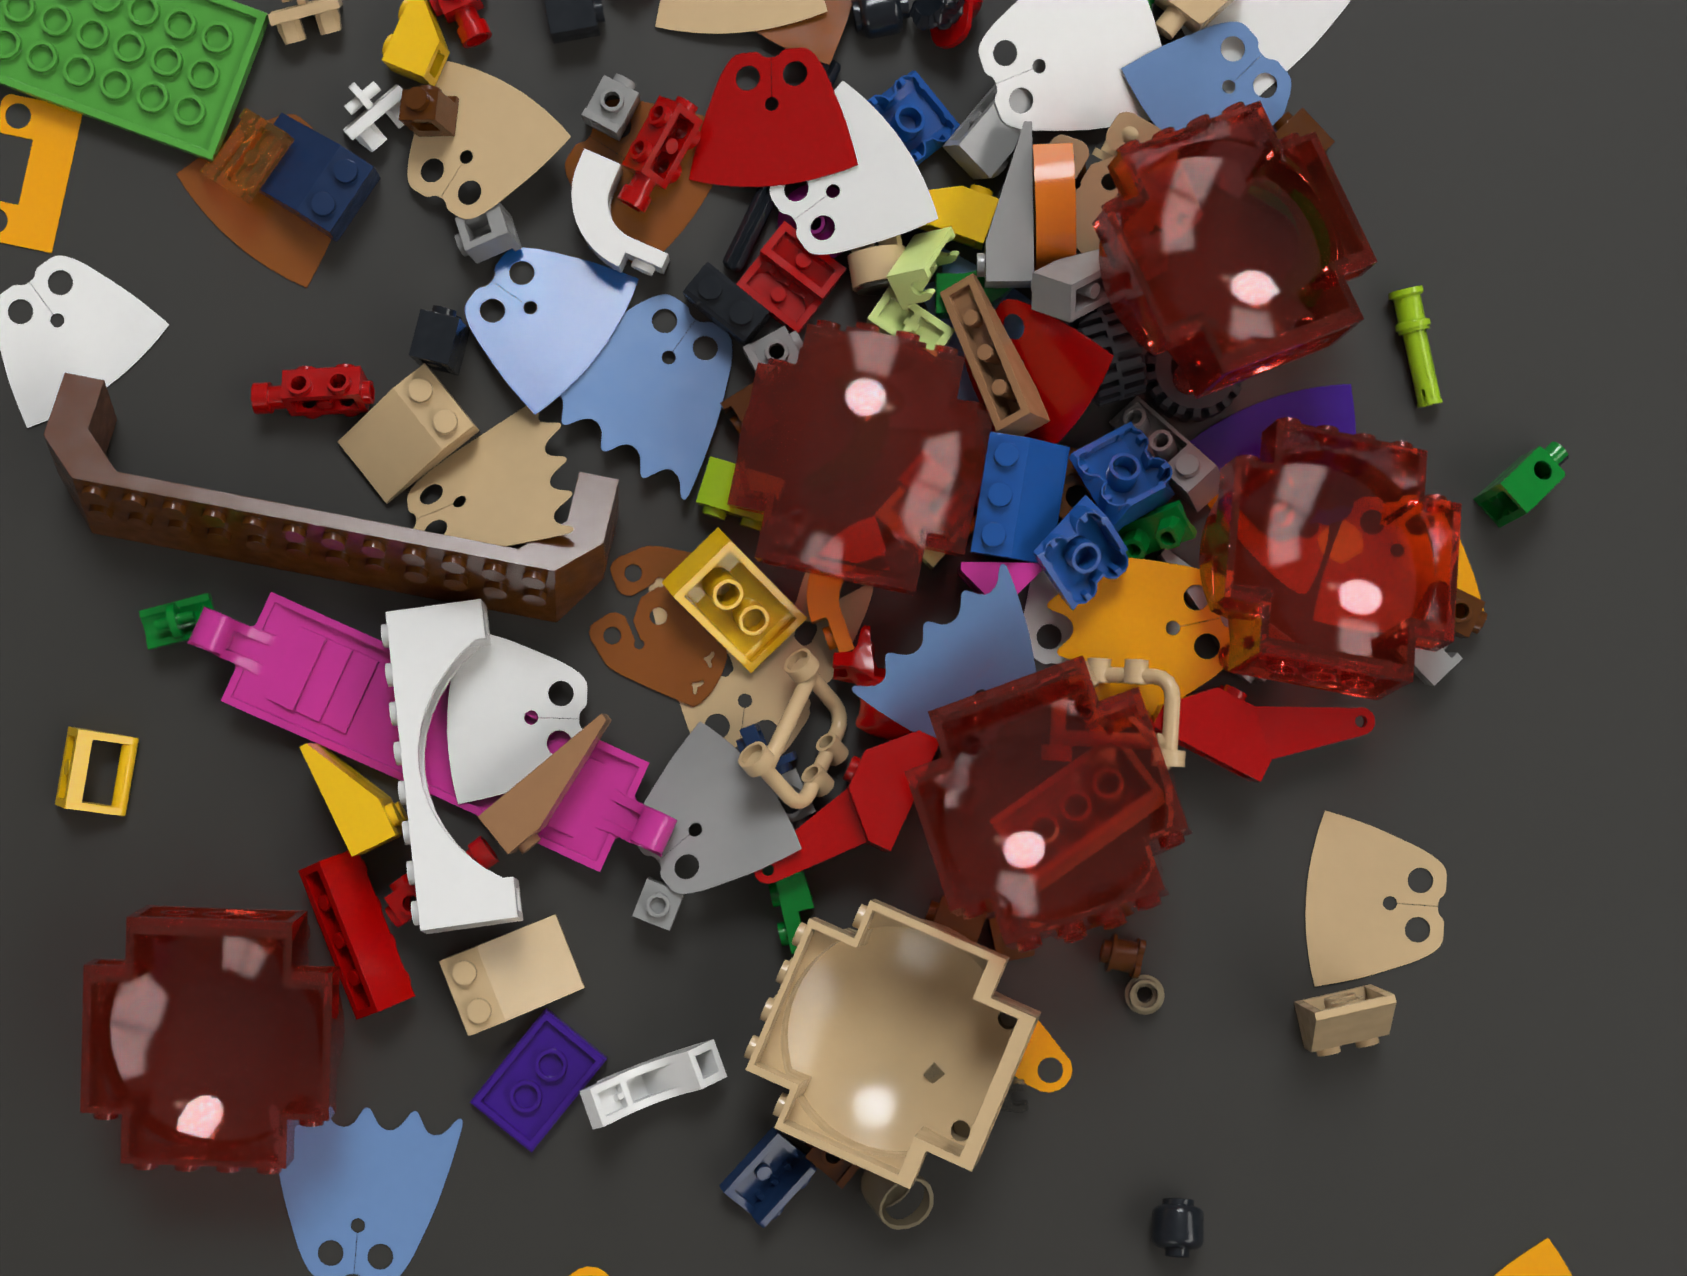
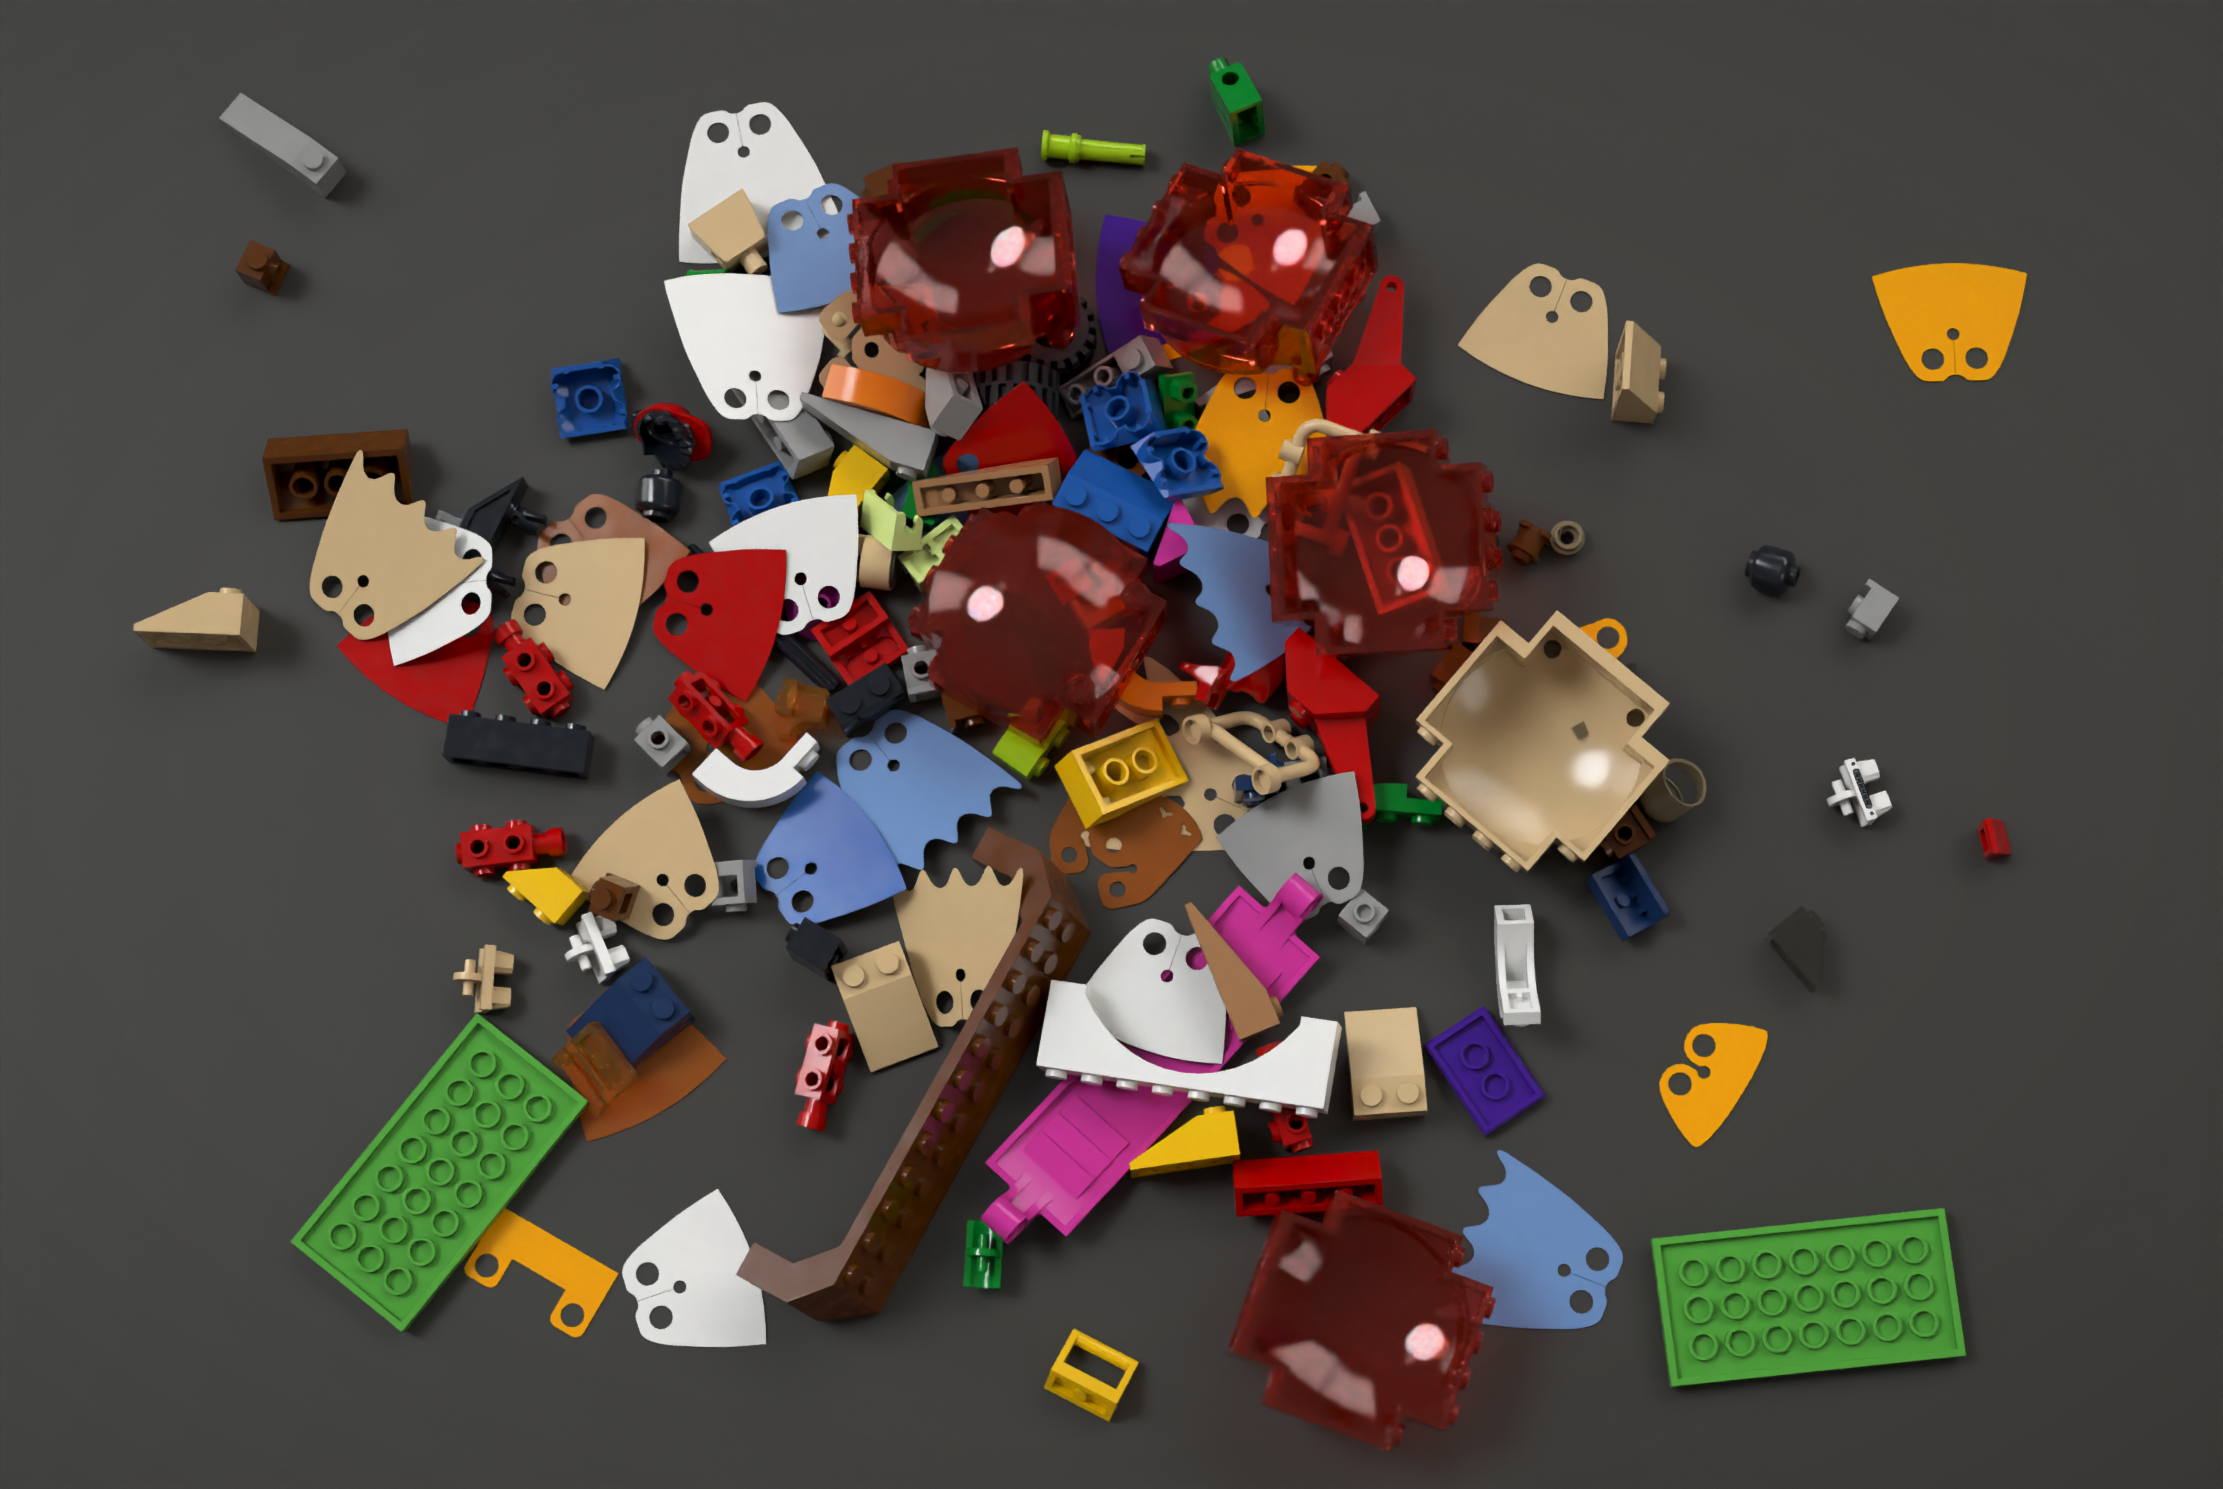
camera: 60 degrees left, 10 degrees down
(695, 237) = (800, 709): none -> clear orange brick

